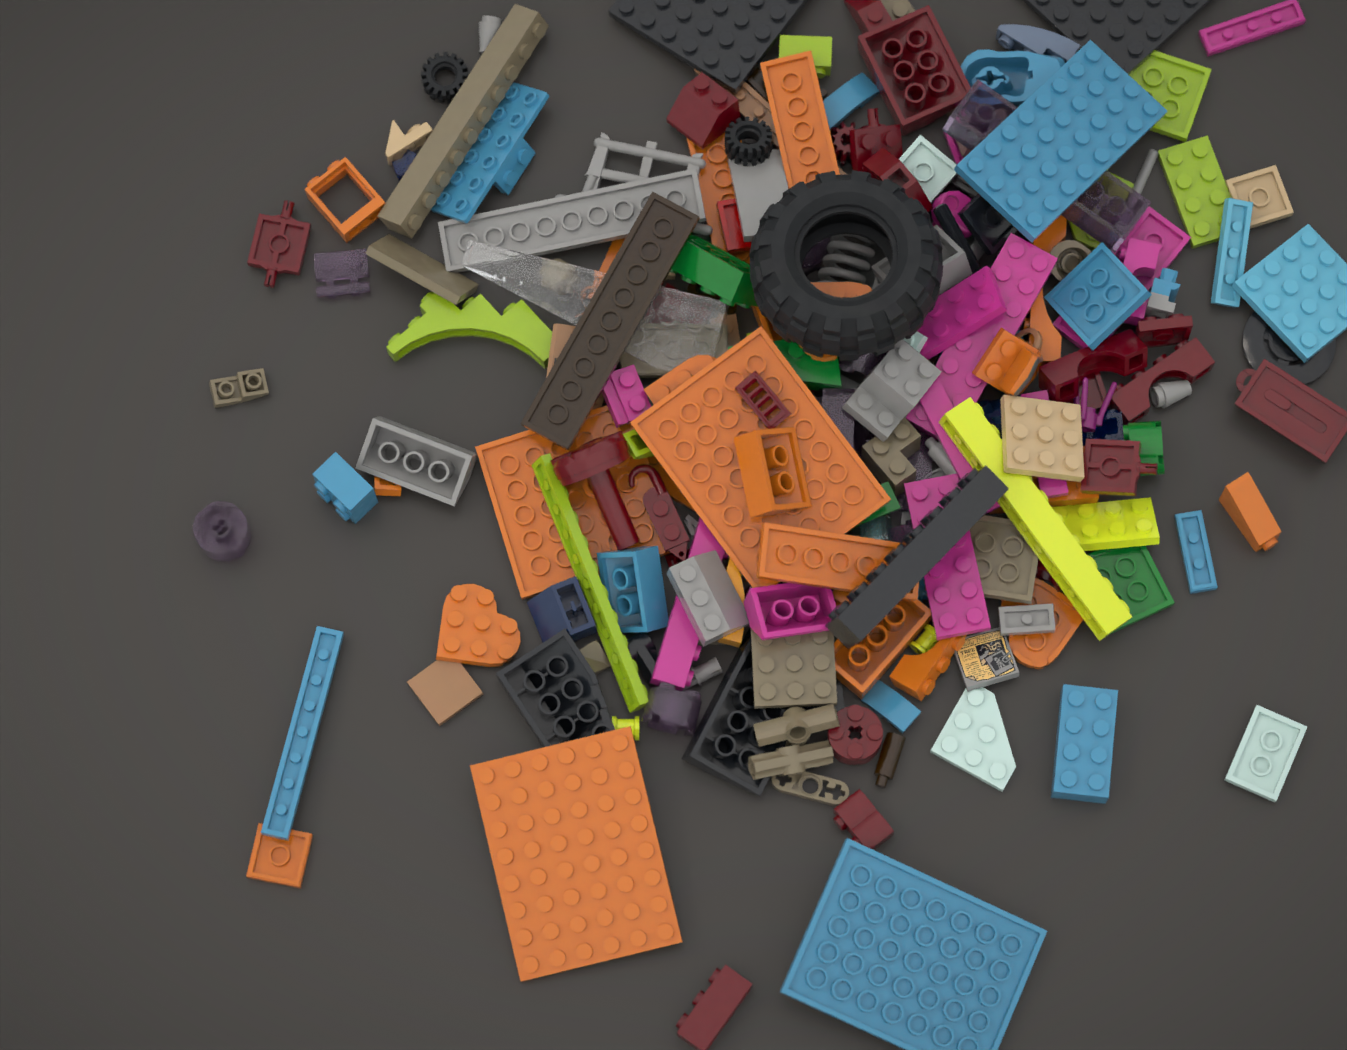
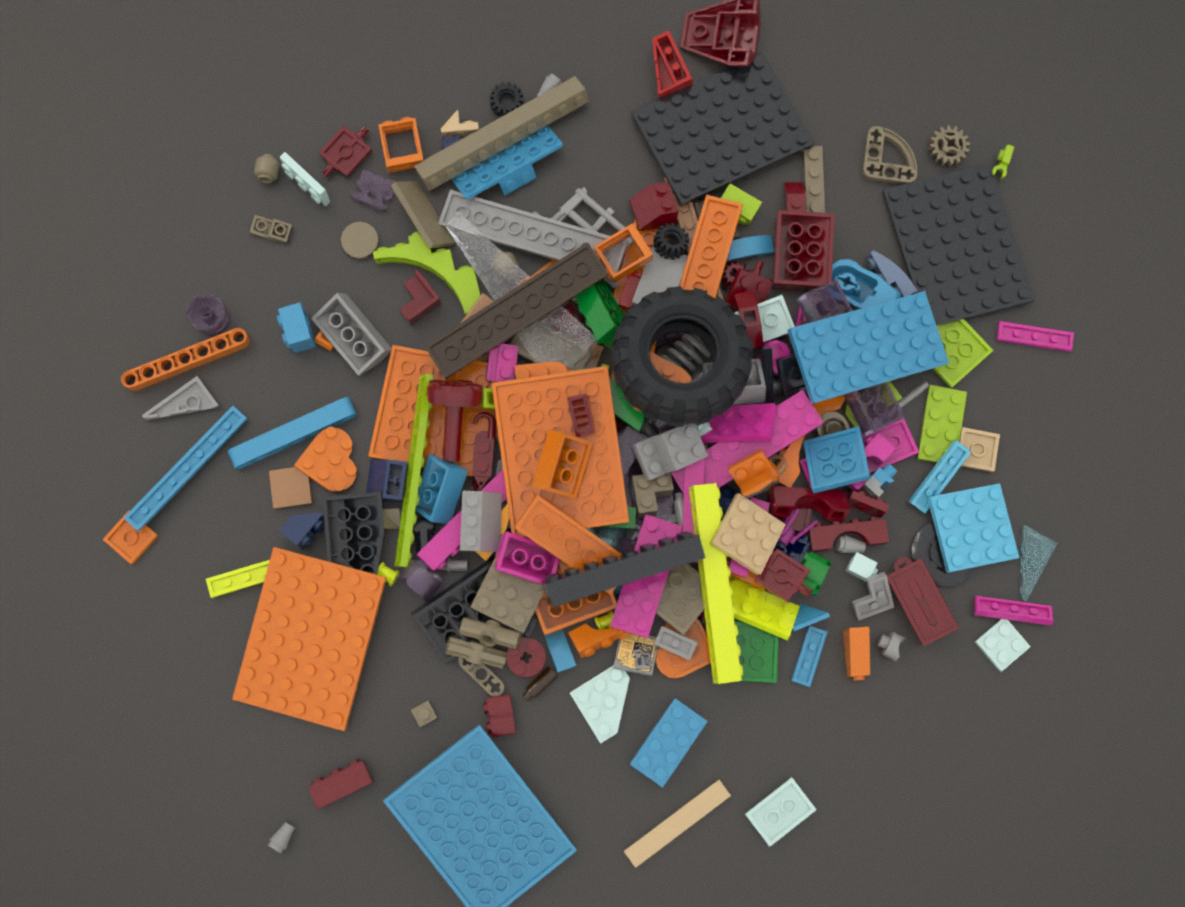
camera: 20 degrees right, 5 degrees up
(193, 316) = (266, 168): none -> dark tan head
(228, 588) = (177, 357): none -> orange beam
(251, 303) = (304, 180): none -> light aqua plate
(256, 648) = (187, 399): none -> light grey wing
(359, 343) = (359, 240): none -> dark tan tile
(409, 621) = (291, 433): none -> dark azure beam
(445, 831) = (237, 579): none -> neon yellow plate
(479, 369) = (424, 299): none -> dark red panel
(490, 726) = (302, 528): none -> dark blue slope
(713, 161) = (629, 231): none -> orange window
(767, 872) = (424, 713): none -> dark tan plate
(1149, 835) = (677, 823): none -> tan tile
(1169, 503) = (807, 616): none -> dark azure slope
(1199, 410) = (861, 566): none -> light aqua brick
(1241, 438) = (878, 600): none -> light grey plate
(1286, 484) = (890, 645): none -> light grey piece

